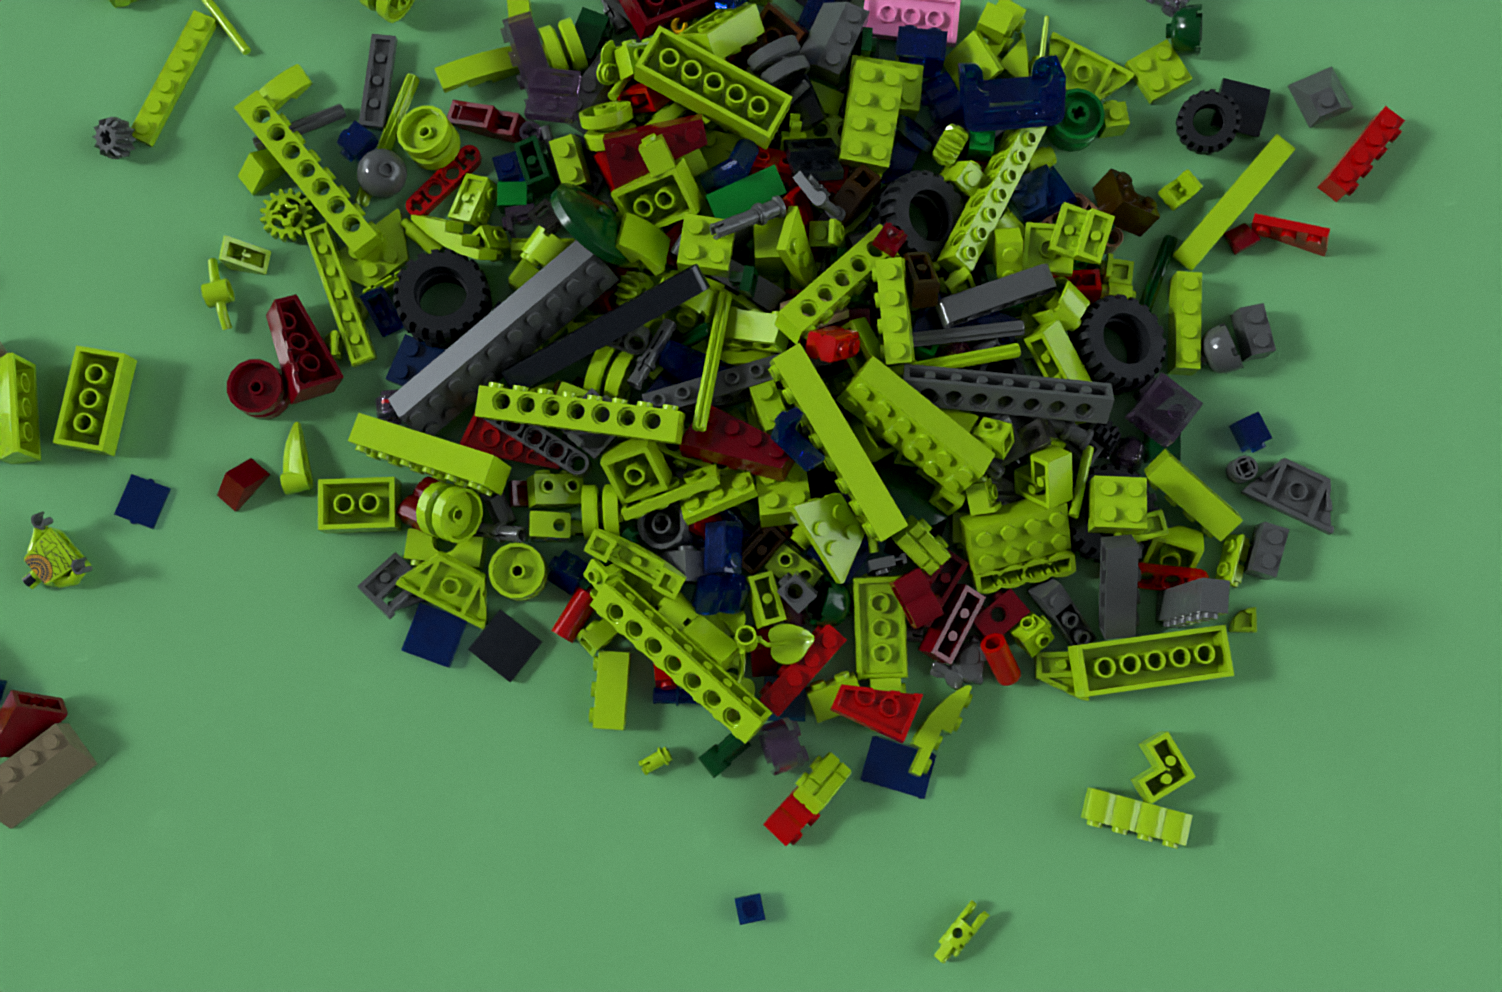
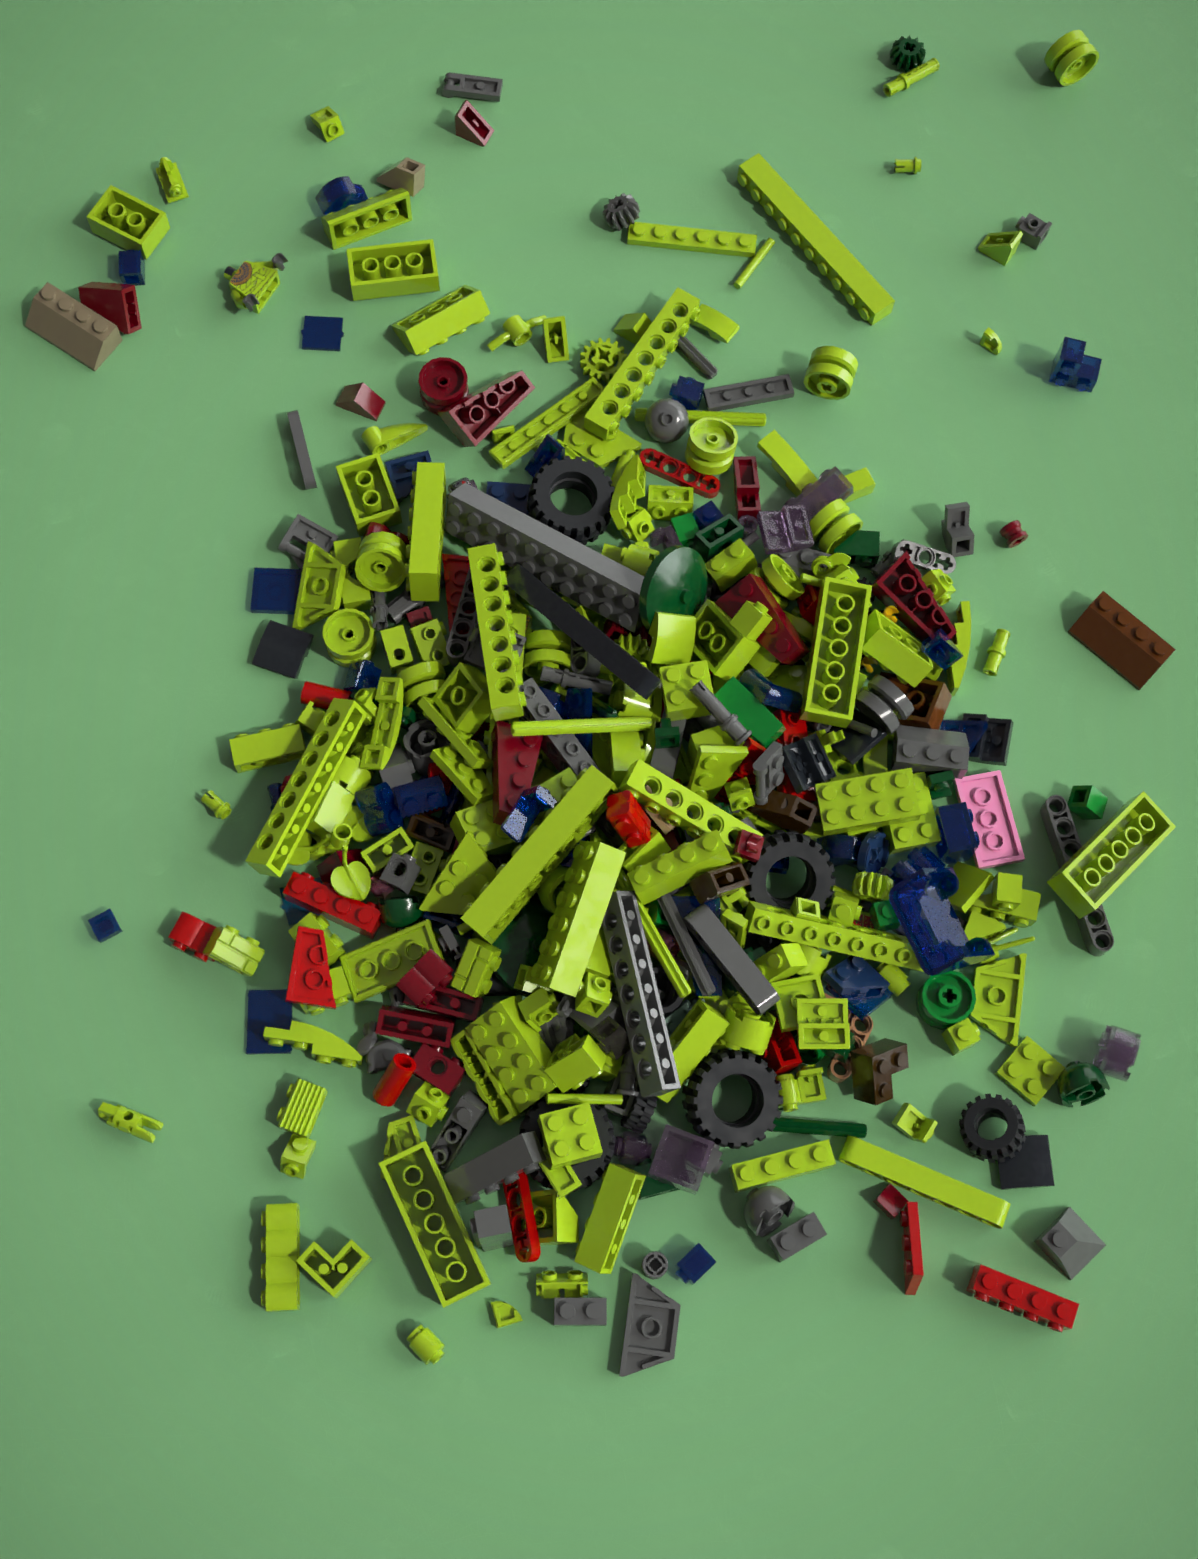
camera: 70 degrees right, 10 degrees down
(174, 368) = (441, 320): none -> lime slope
(281, 562) = (301, 449): none -> dark grey beam
(343, 459) = (401, 471): none -> dark blue wing
(721, 755) = (233, 857): dark green piece -> none
(782, 745) = (257, 906): clear purple brick -> none
(963, 211) = (806, 909): none -> lime slope
(998, 758) = (302, 1108): none -> lime brick
(1042, 775) = (297, 1156): none -> lime bracket
(1255, 703) = (426, 1345): none -> lime brick

